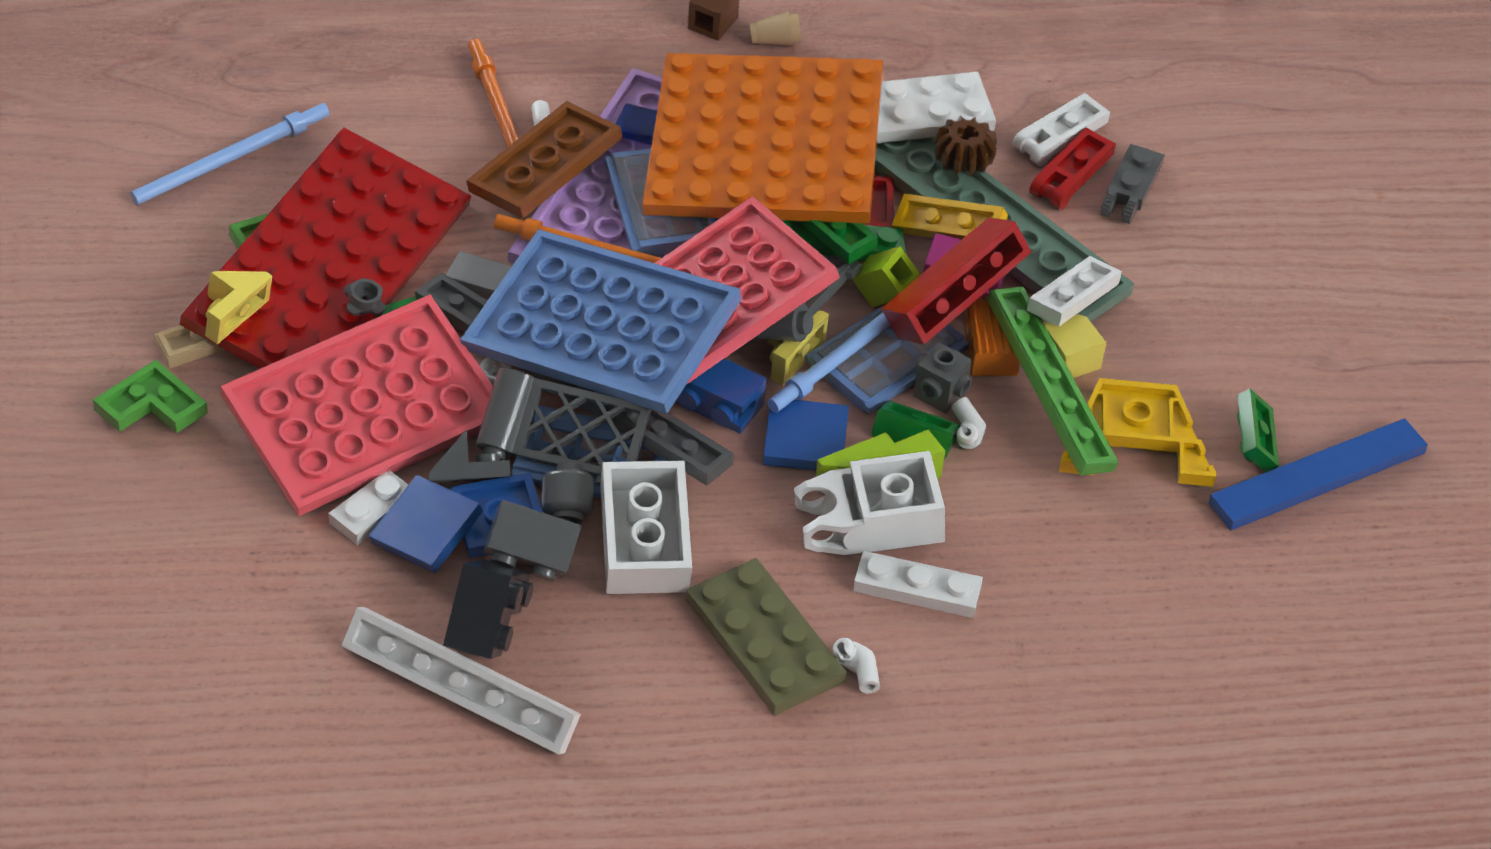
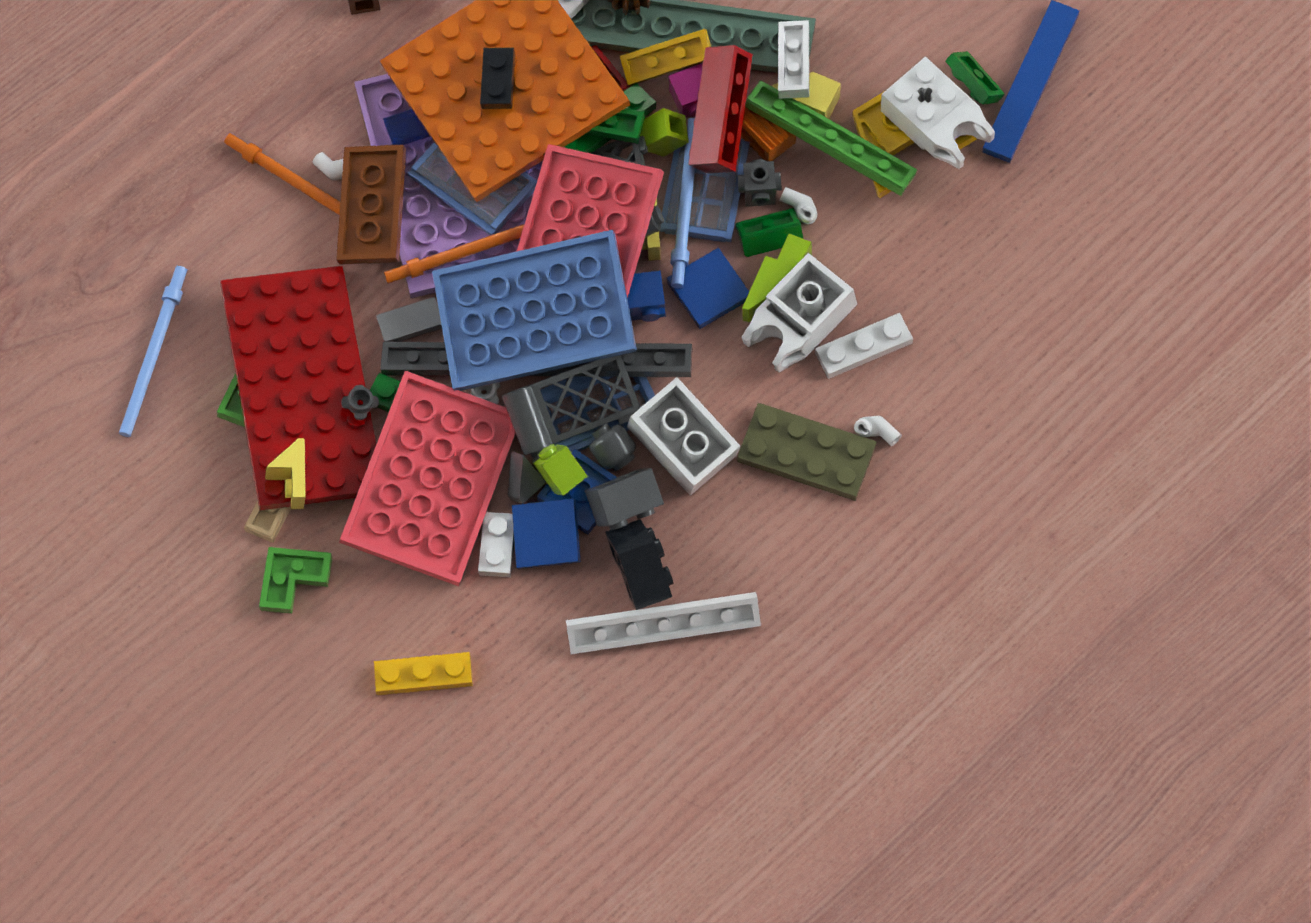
camera: 30 degrees left, 20 degrees up
(183, 564) = (423, 673): none -> yellow plate
(490, 466) = (559, 468): none -> lime brick
(758, 119) = (497, 78): none -> black plate
(1181, 418) = (934, 112): none -> white brick

